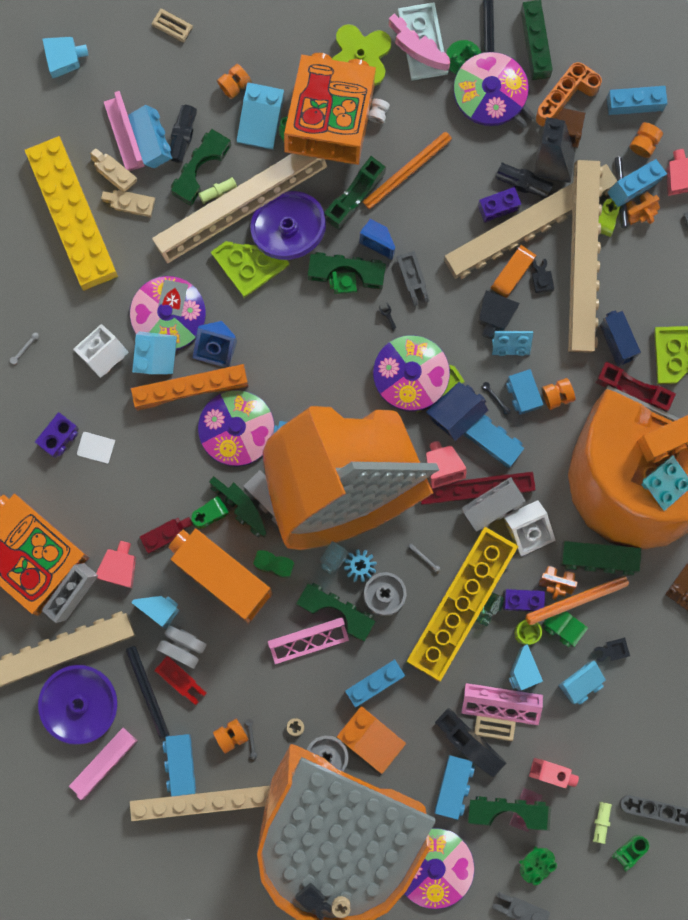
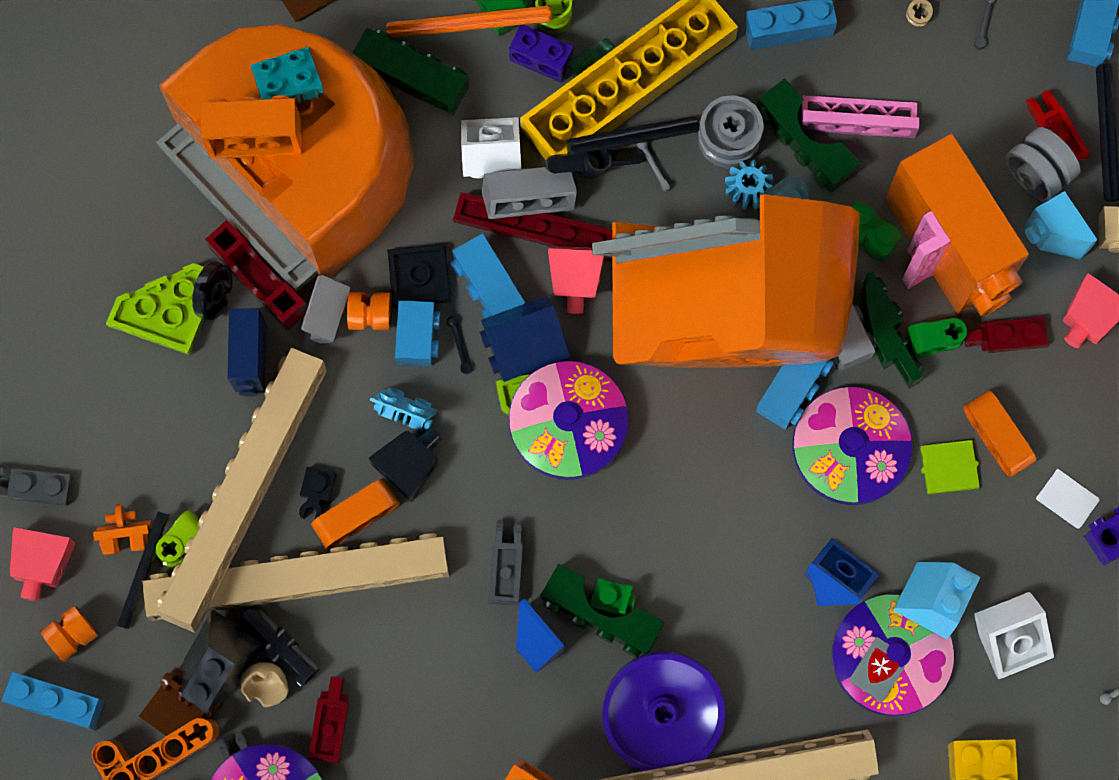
camera: 155 degrees left, 5 degrees down
(150, 468) = (999, 433): none -> orange beam
(173, 438) = (949, 467): none -> lime piece
(207, 382) = (870, 520): orange arch -> none
(224, 739) = (1024, 29): orange wheel -> none
(232, 548) = (925, 250): none -> bright pink fence
(247, 265) = (750, 680): lime plate -> none
(361, 186) = (543, 724): dark green arch -> none
(387, 313) = (566, 526): black hand -> none
(407, 170) = (446, 733): orange axle -> none
(444, 565) = (632, 135): none -> black axle
(453, 547) = (607, 158): none -> black piece
(476, 150) = (329, 723): none -> dark red hinge
(499, 204) = (332, 621): dark purple brick -> none
(522, 157) = (265, 683): none -> tan hair
(538, 431) = (419, 274): none -> black tile
(556, 584) = (472, 54): orange hips -> none
(584, 382) = (325, 309): none -> light grey panel
(637, 182) = (115, 568): dark azure brick -> none
(658, 366) = (211, 290): none -> black tile

